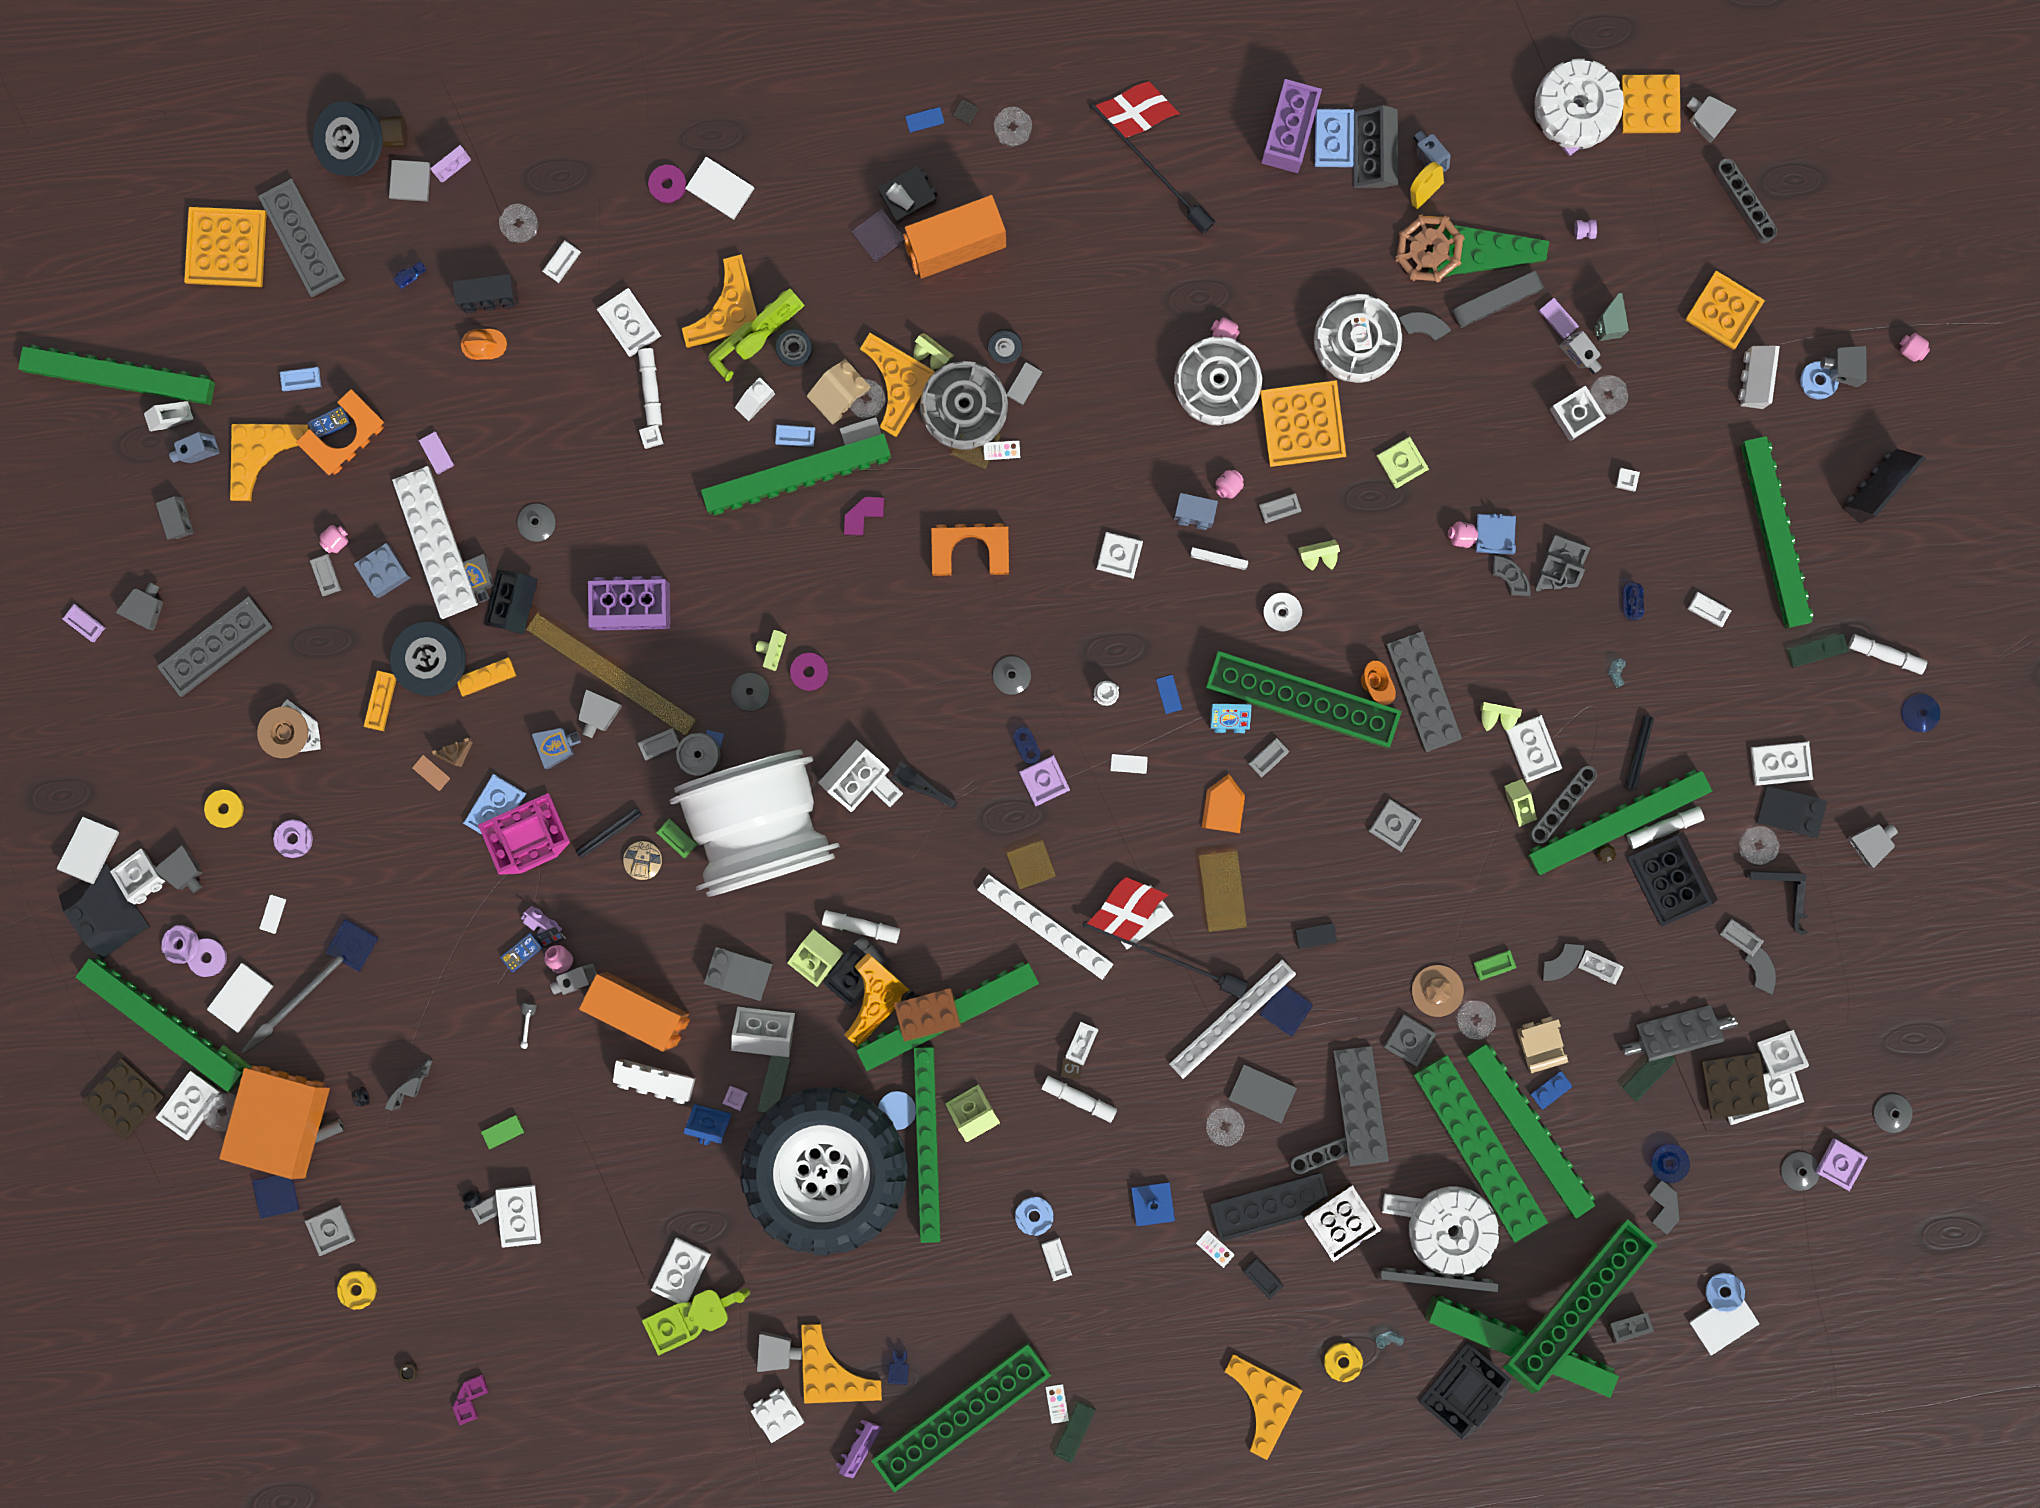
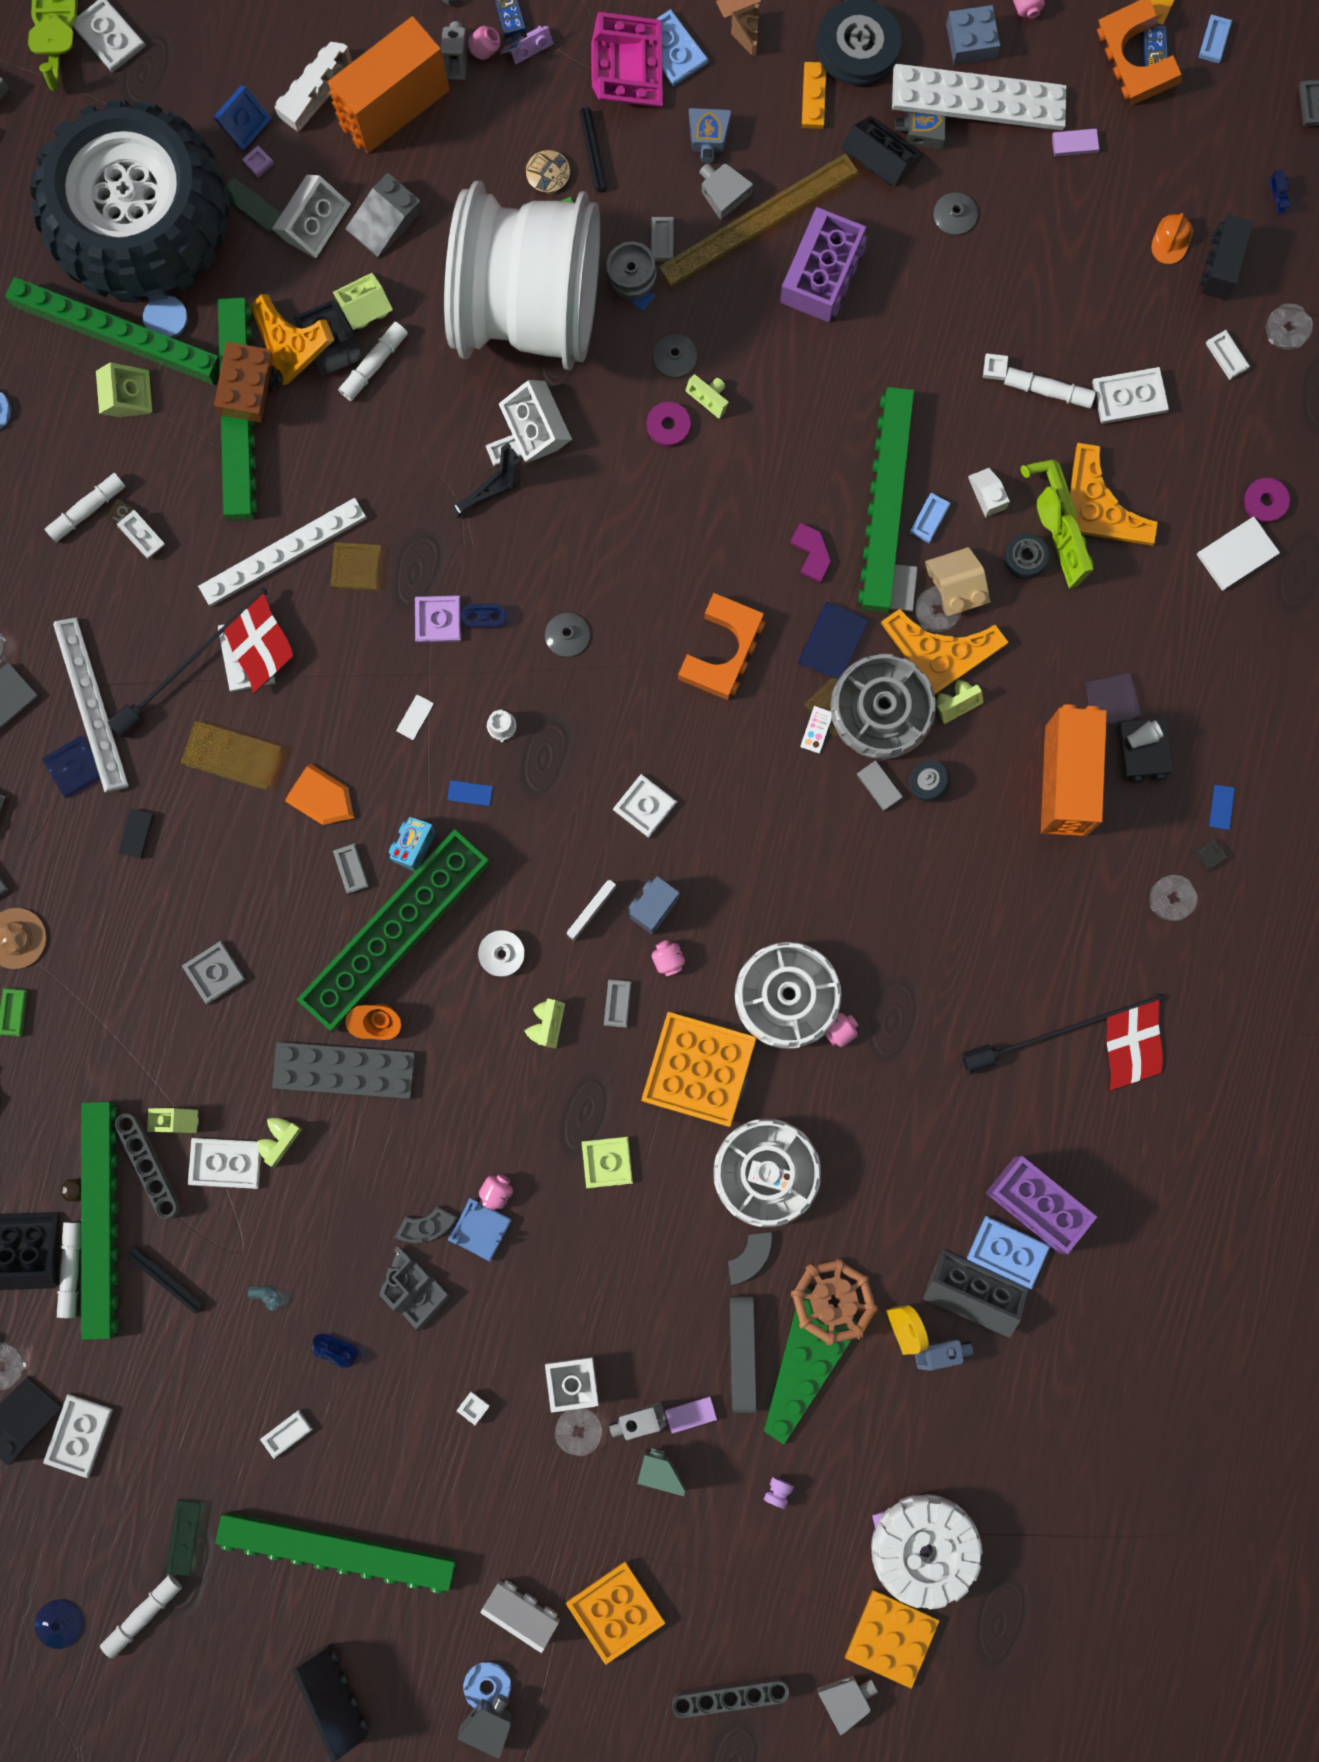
camera: 115 degrees right, 5 degrees down
(927, 467) = (833, 641): none -> clear blue piece

